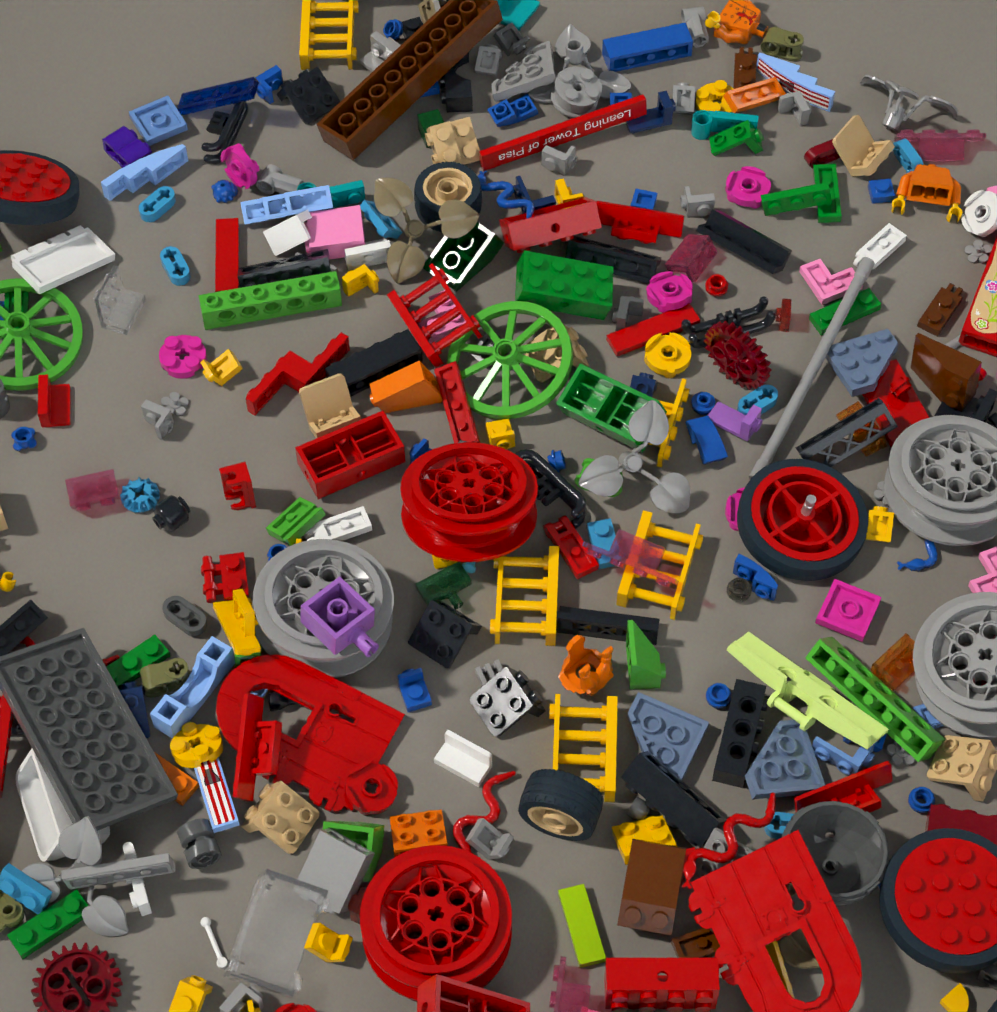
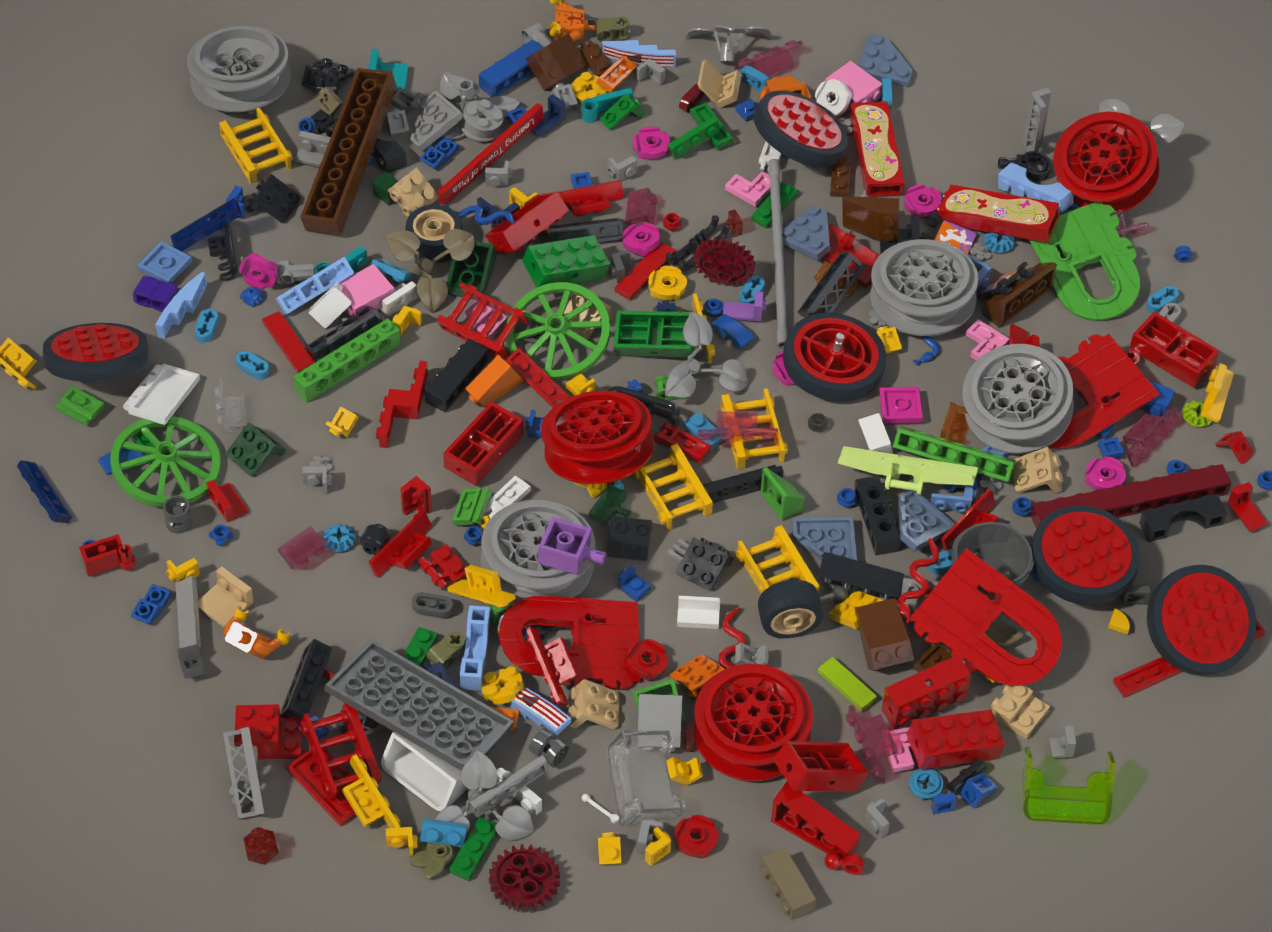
camera: 30 degrees left, 5 degrees down
(115, 355) = (252, 449): none -> dark green bracket
(182, 344) = (300, 418): dark pink plate -> none
(196, 535) = (404, 547): none -> red bracket
(328, 405) = (445, 418): tan bracket -> none
(589, 681) = (758, 513): orange piece -> none
(697, 56) = (556, 61): none -> reddish brown slope
(745, 241) = (674, 181): black fence -> none
(763, 583) = (832, 410): blue slope -> none
(796, 634) = (875, 434): none -> white hinge
(919, 235) = (800, 128): none -> wheel

